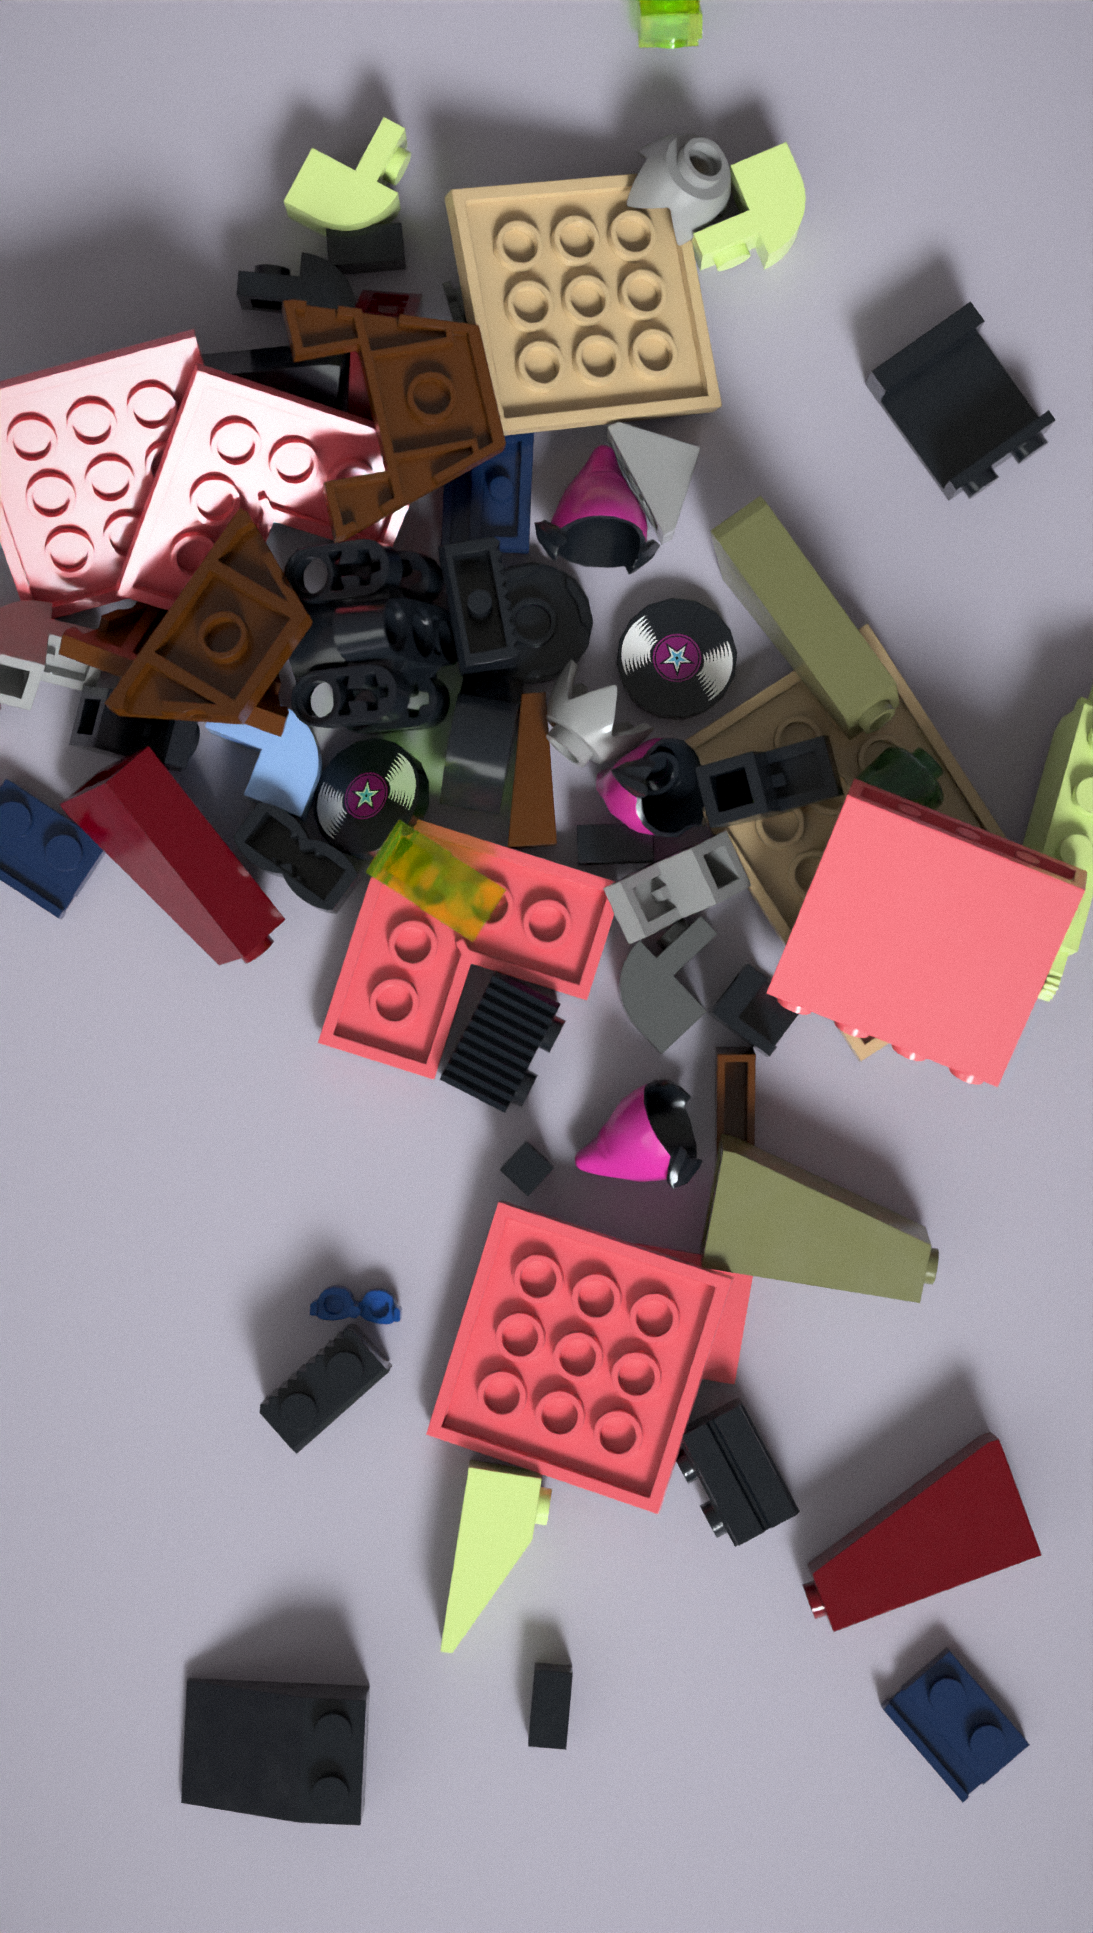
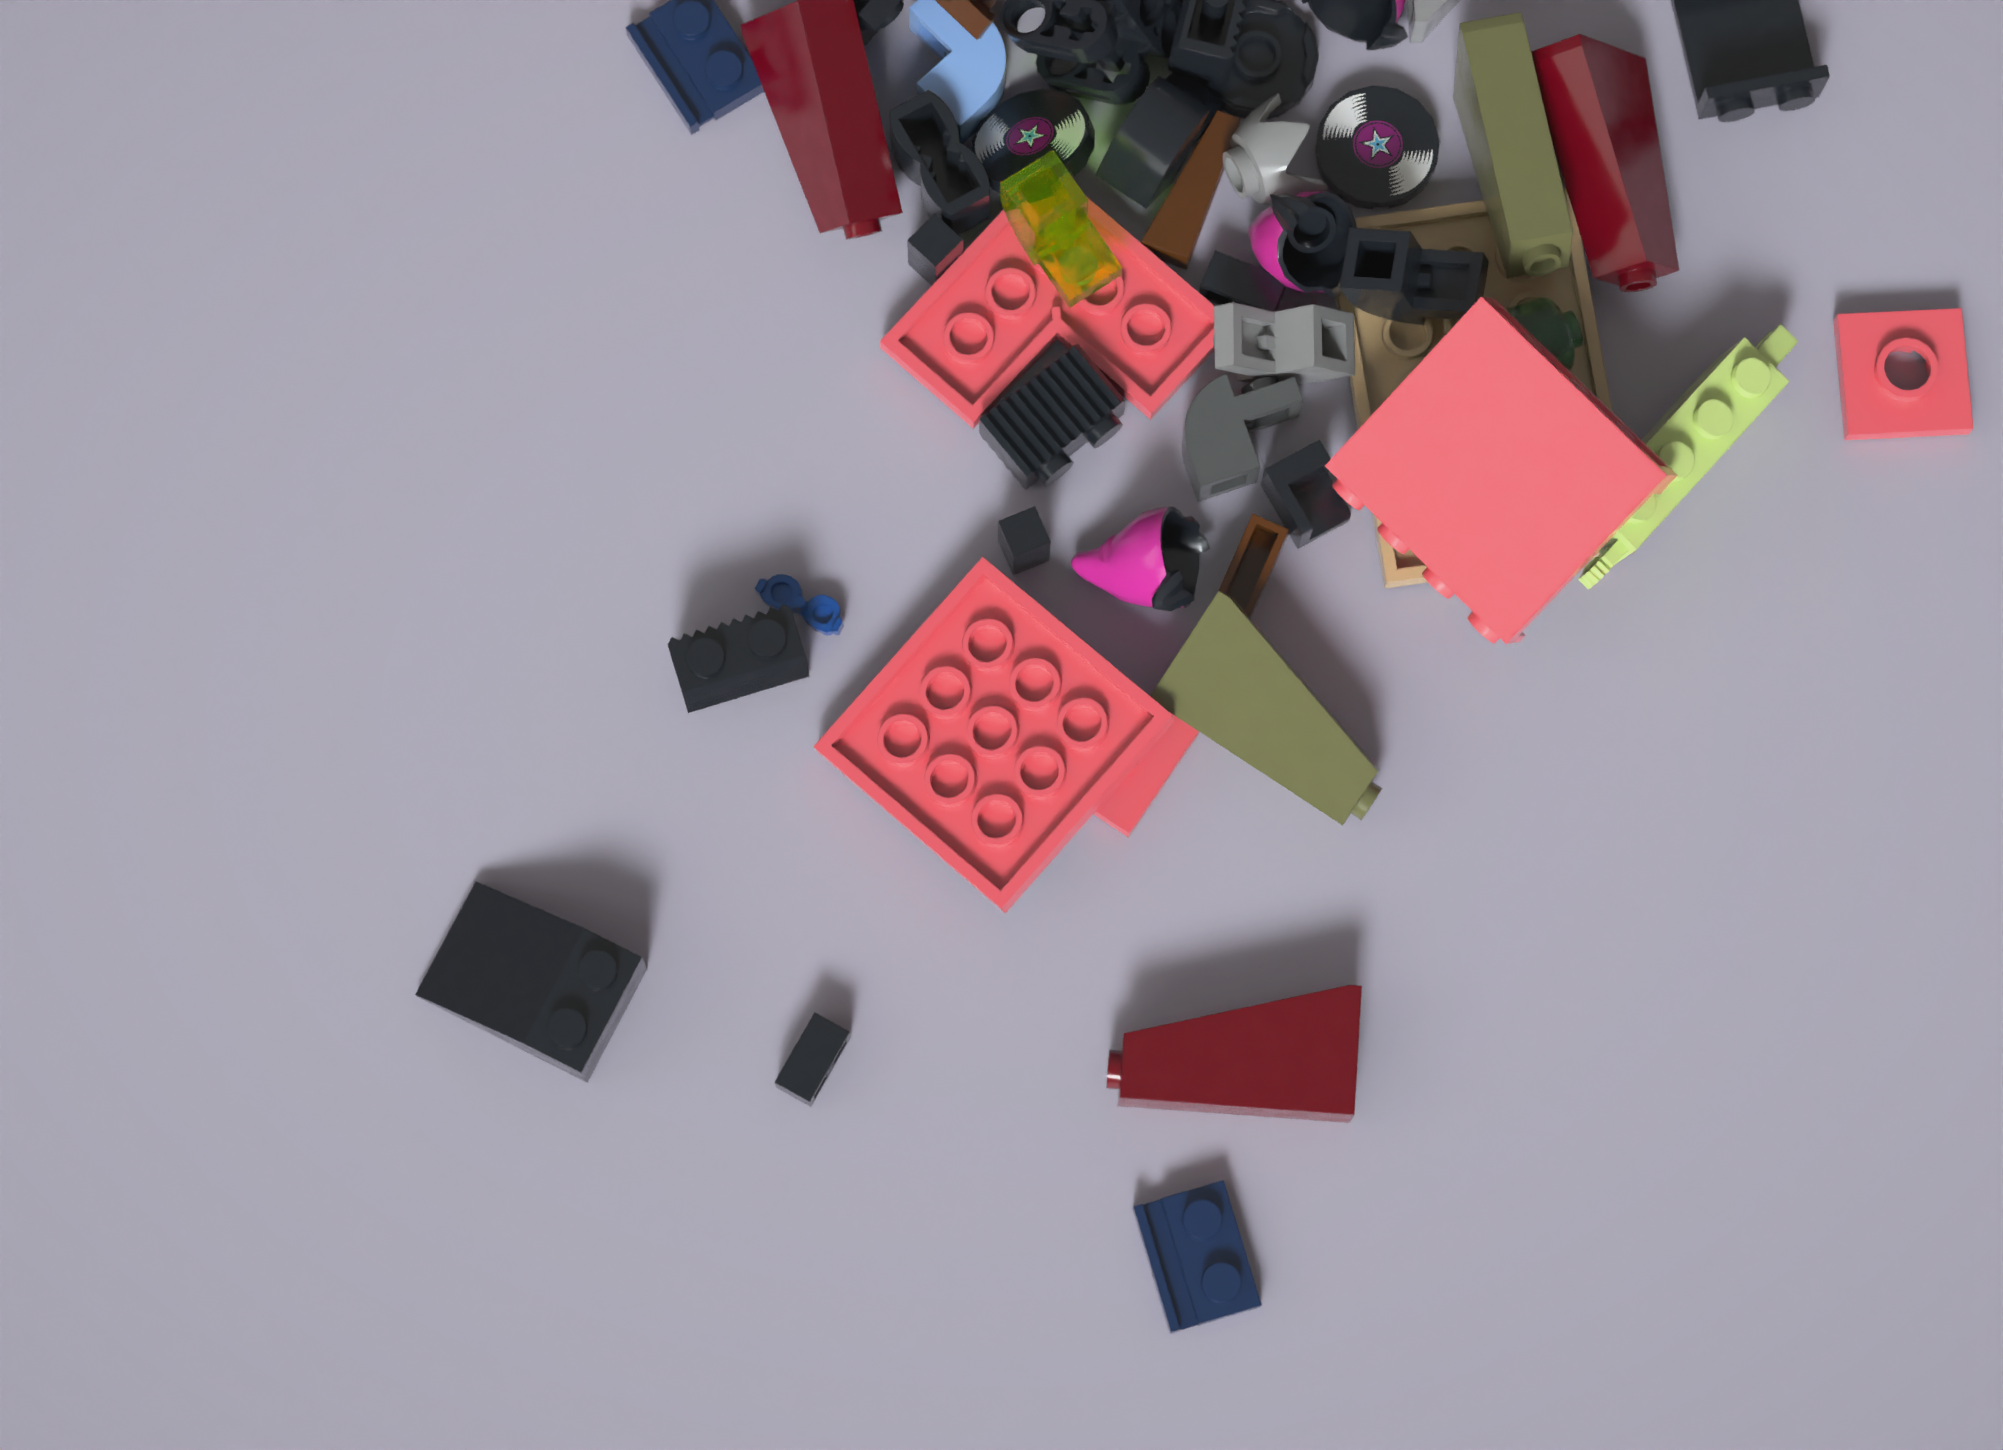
camera: 25 degrees right, 10 degrees down
(328, 938) = (933, 249): none -> black piece
(493, 1533) = (832, 869): yellowish green slope -> none
(736, 1474) = (1092, 914): black brick -> none
(892, 586) = (1609, 158): none -> dark red slope

